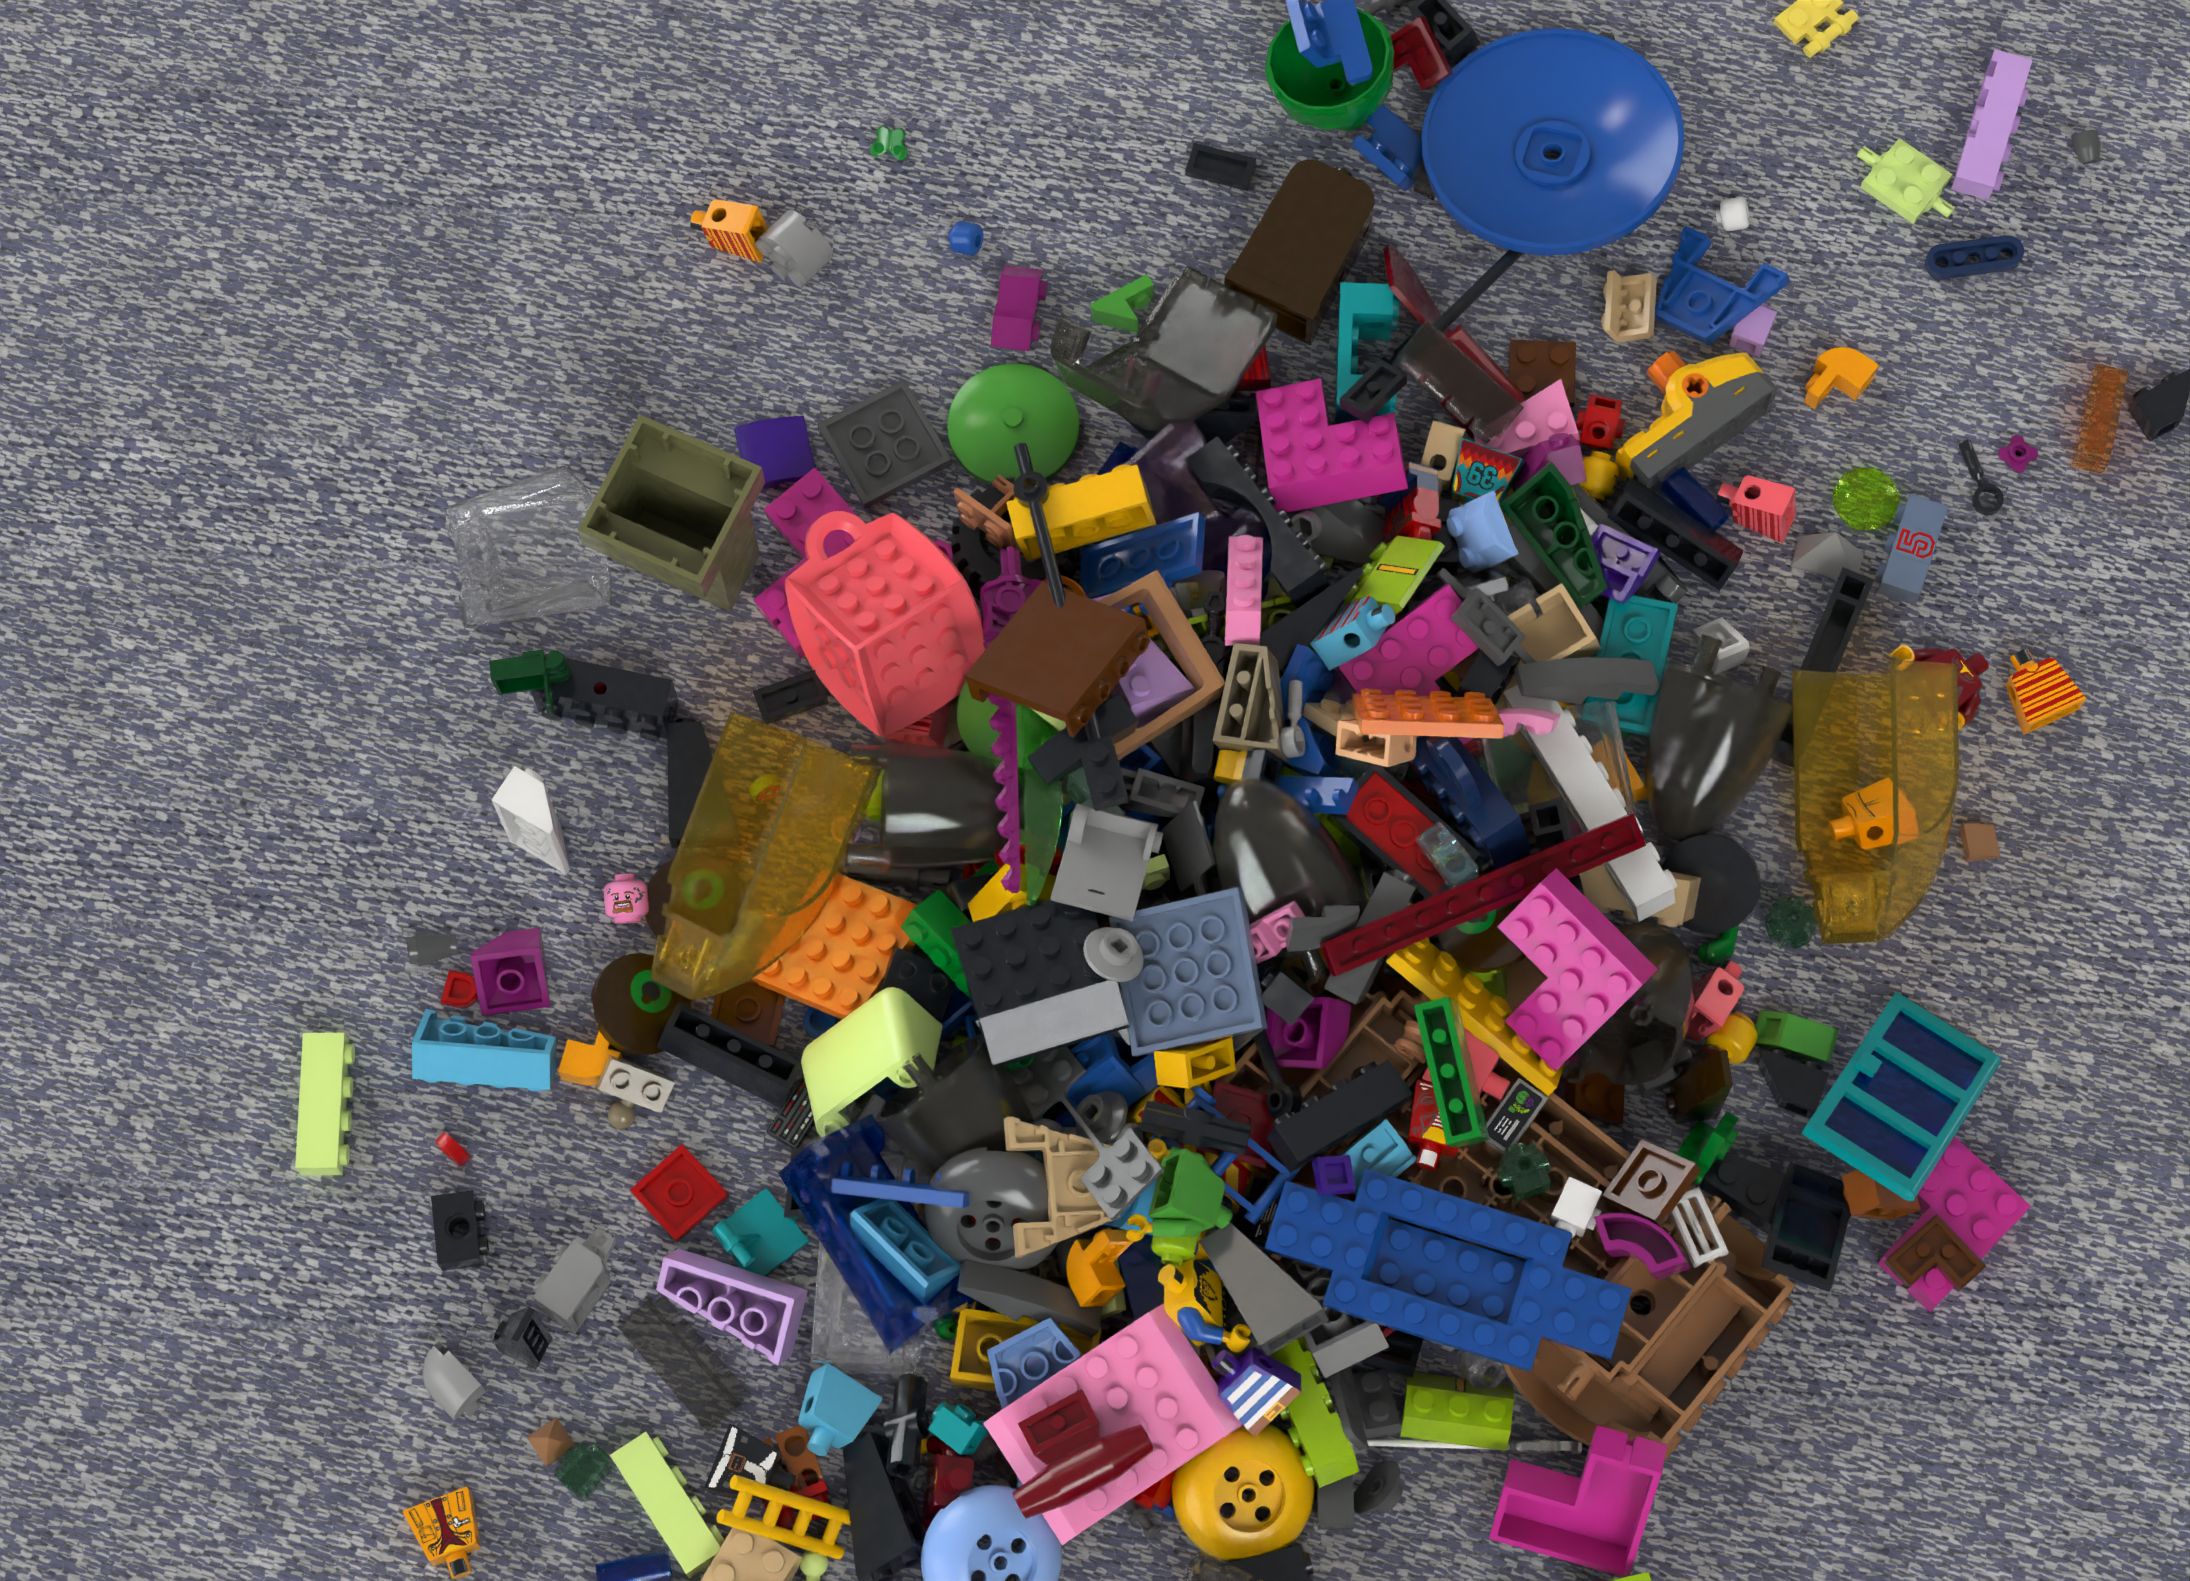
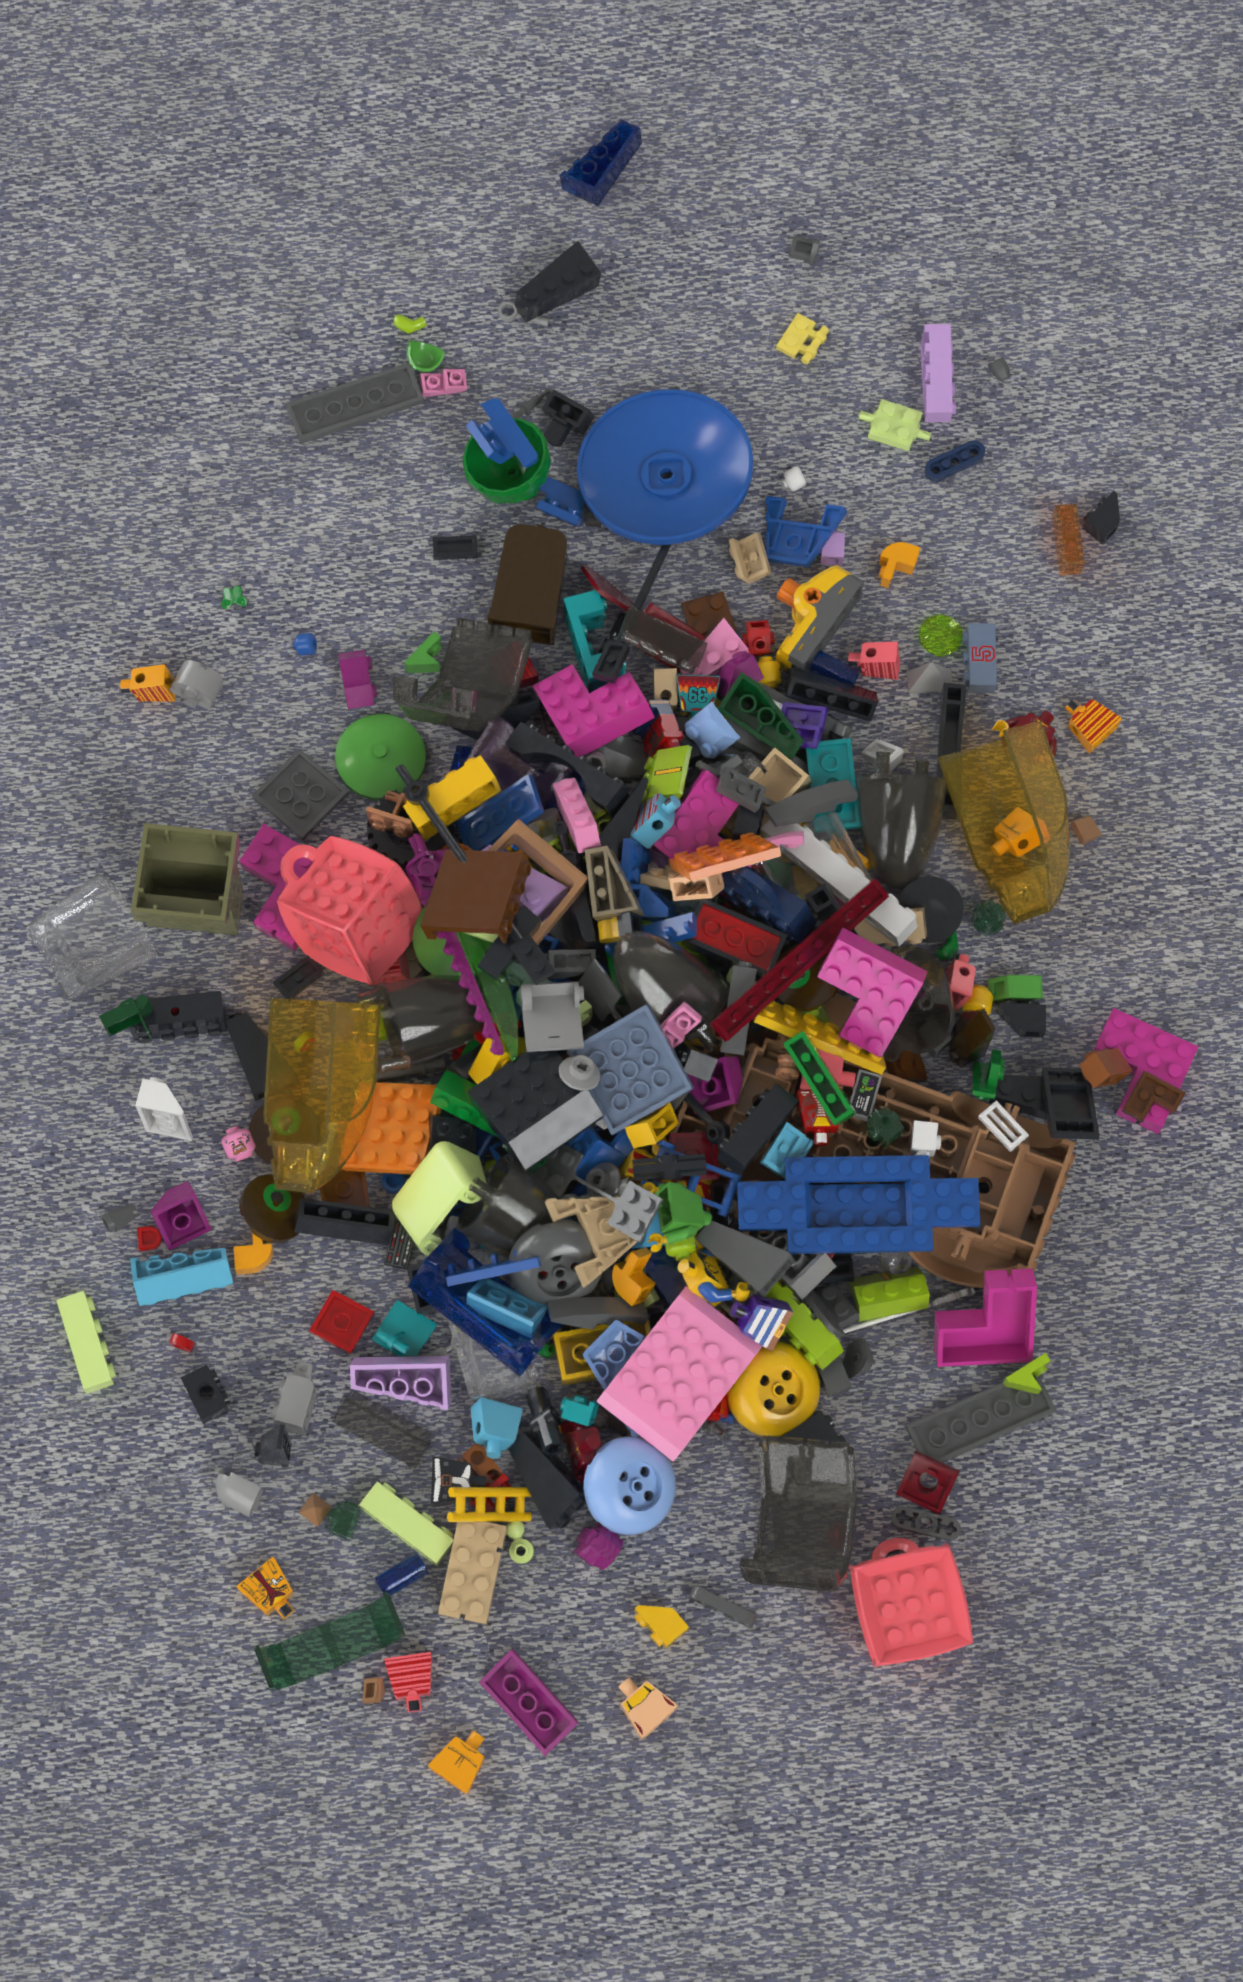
camera: 25 degrees left, 0 degrees up
(633, 1086) = (287, 1262): plate -> none
(778, 447) = (231, 815): dark purple slope -> none
(1075, 1455) = (665, 1400): dark red plate -> none
(1292, 737) = (642, 898): light grey piece -> none
(1309, 932) = (702, 1017): dark grey slope -> none
(1333, 1175) = (767, 1168): dark purple tile -> none
(1419, 48) = (559, 432): dark red plate -> none
(1447, 855) = (768, 942): clear light blue leg -> none
(1642, 1240) = (974, 1146): magenta brick -> none
(1651, 1182) = (966, 1107): plate -> none
(1902, 1097) = (1097, 1004): door -> none
(1976, 473) = (1003, 597): black piece -> none
(2017, 463) = (1025, 583): magenta plate -> none

